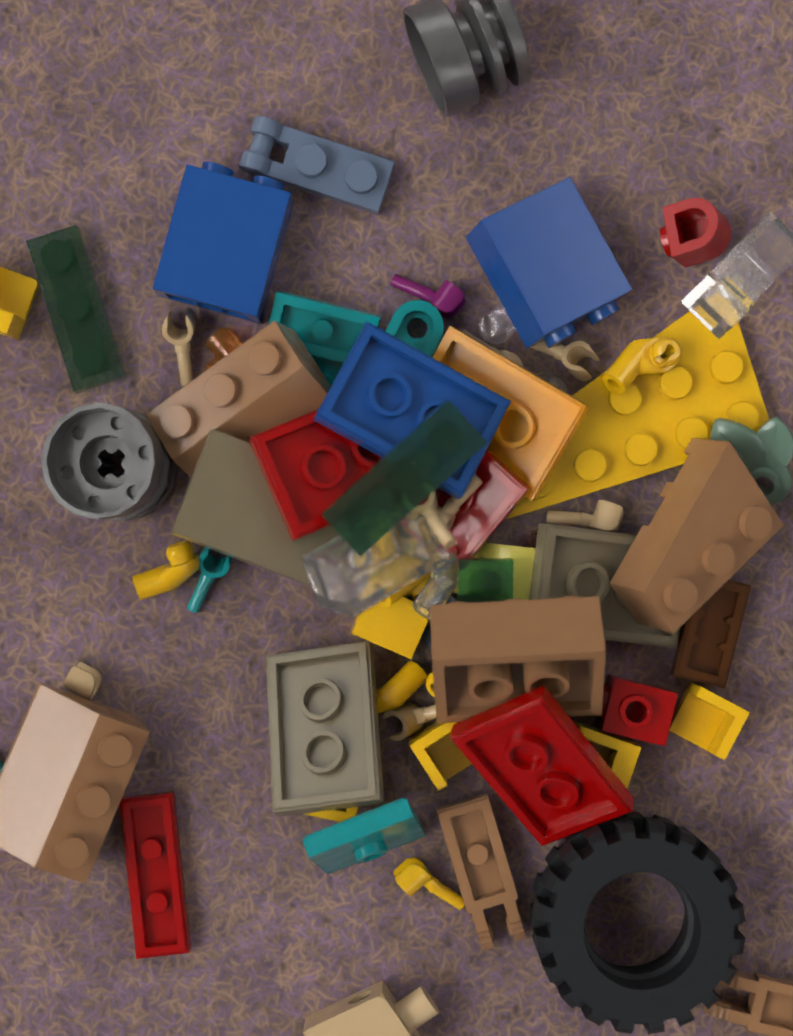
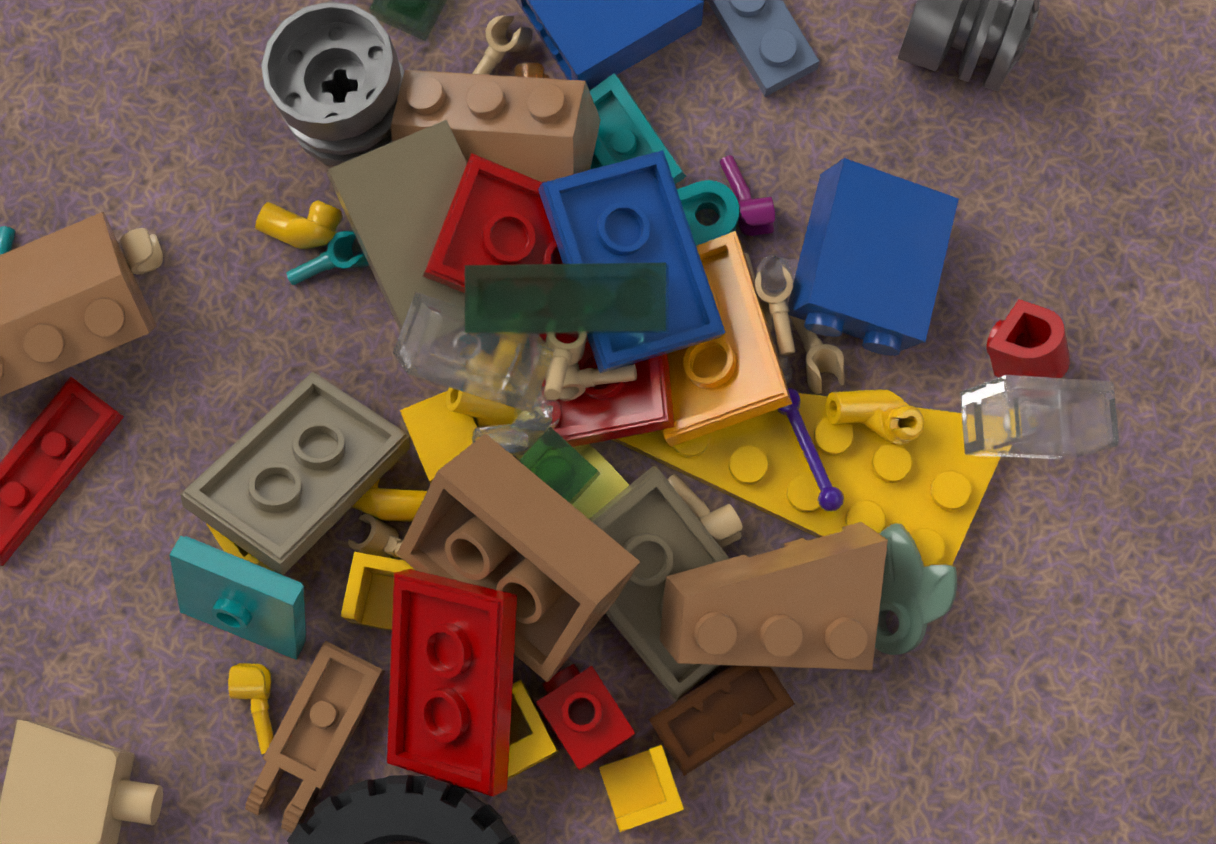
camera: 50 degrees right, 10 degrees down
(522, 351) = (779, 310): none -> tan hand
(661, 441) = (830, 497): none -> dark purple hinge

